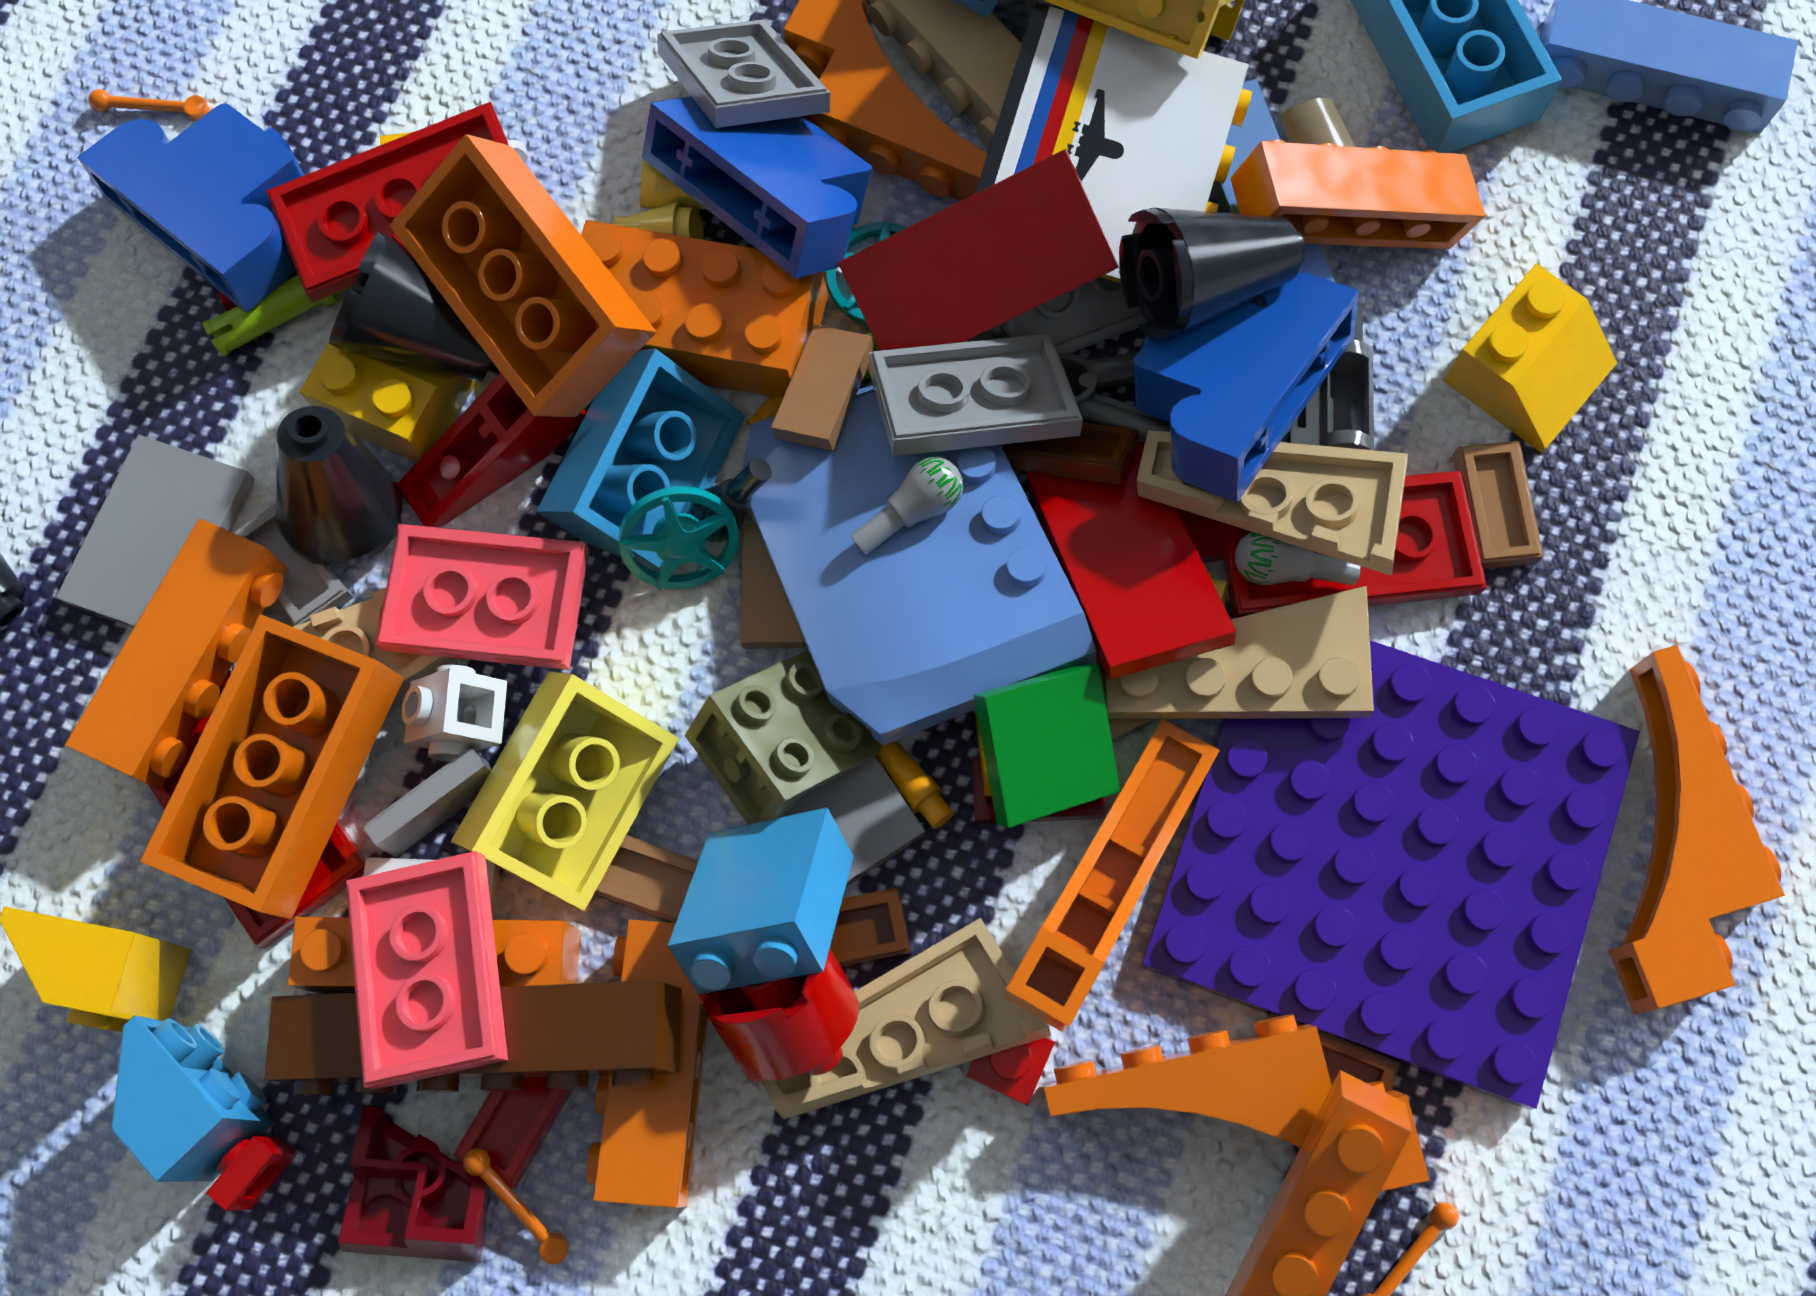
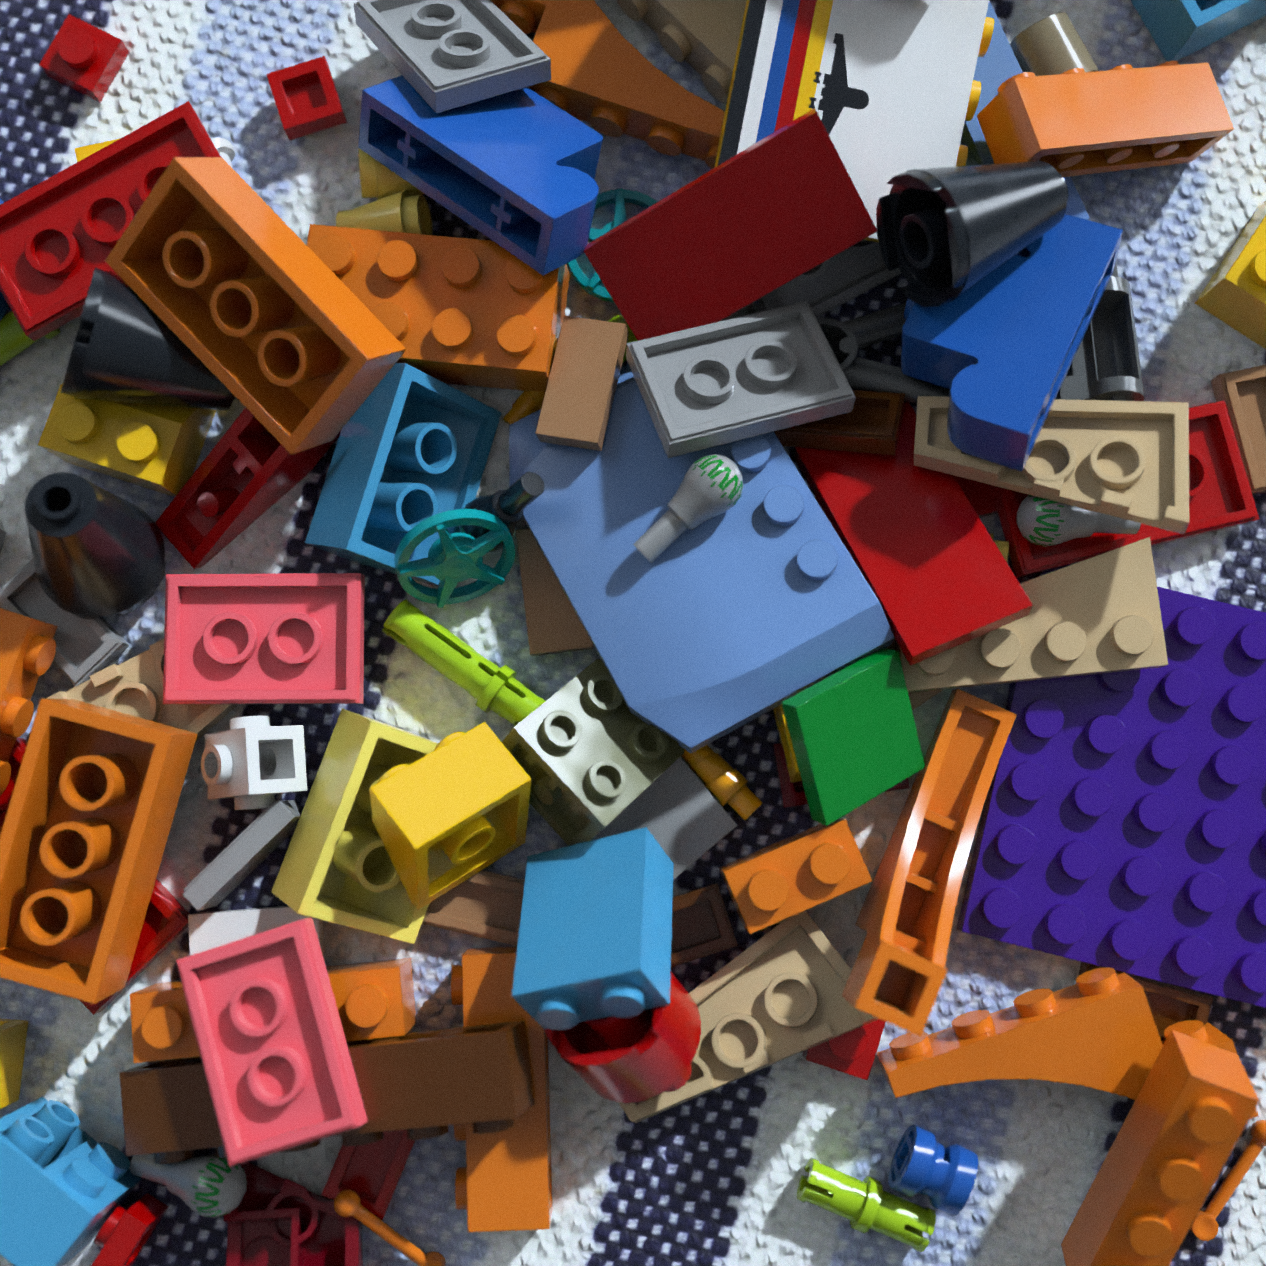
camera: 15 degrees left, 10 degrees up
(338, 1122) = (201, 1181): none -> light grey piece
(403, 63) = (84, 58): none -> red plate
(602, 115) = (306, 98): none -> red plate
(638, 778) = (451, 812): none -> yellow slope
(697, 668) = (489, 684): none -> lime pin
(975, 882) = (795, 874): none -> orange brick
(1012, 1237) = (866, 1205): none -> lime pin
(1084, 1205) = (931, 1170): none -> blue wheel

